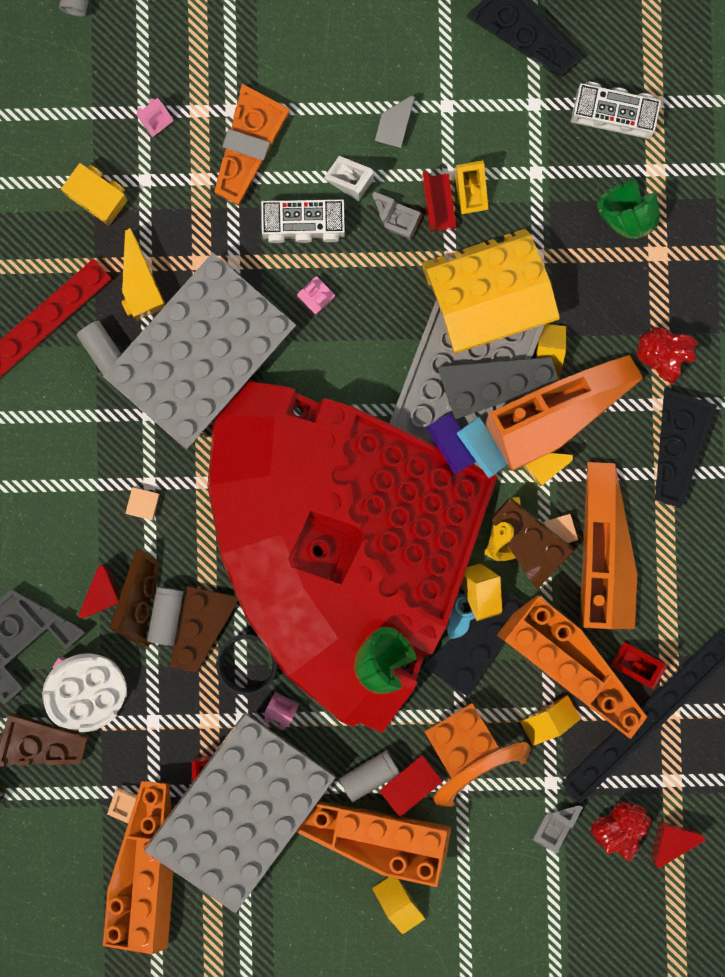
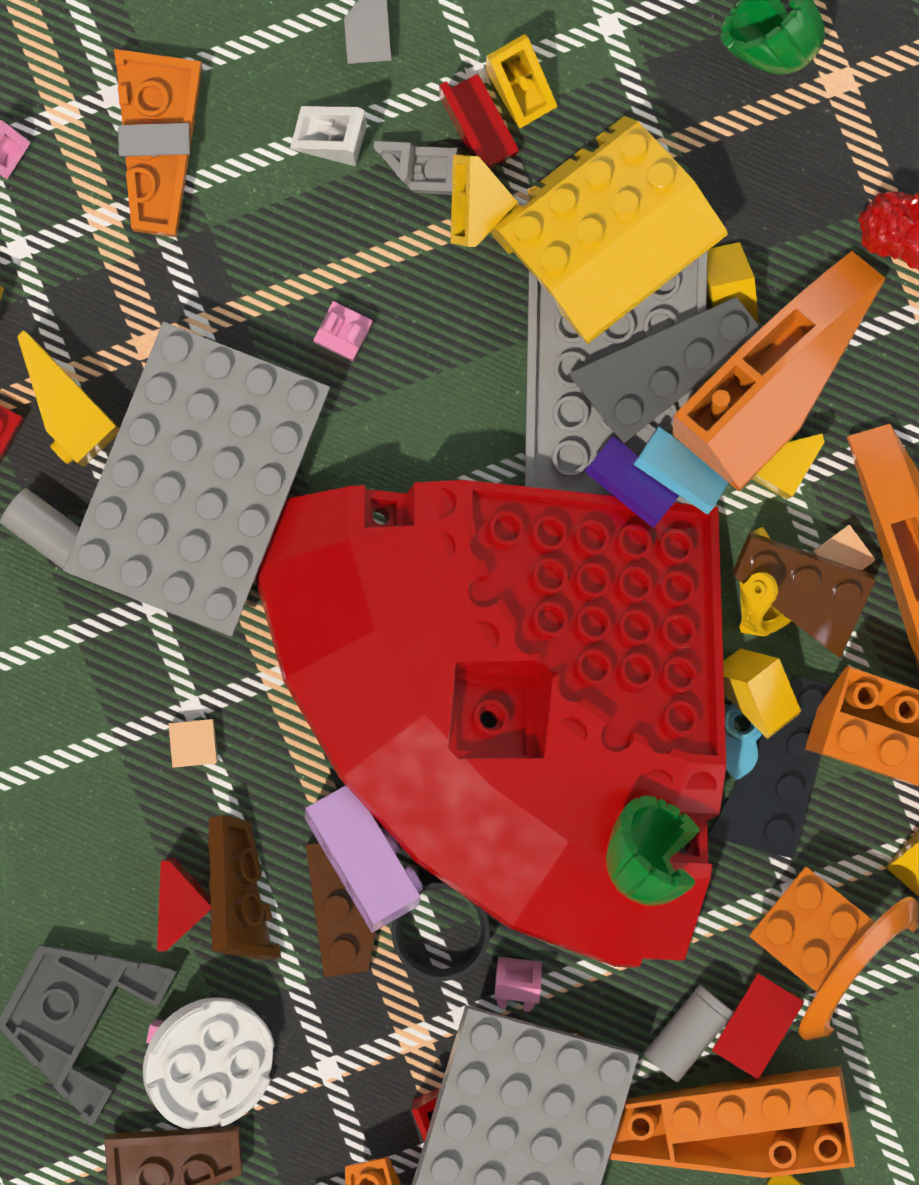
camera: 15 degrees left, 0 degrees up
(165, 616) = (289, 902): light grey pin -> none
(217, 606) = (363, 858): none -> lavender brick
(303, 220) = (282, 224): brick -> none
(421, 247) = (477, 200): none -> yellow slope

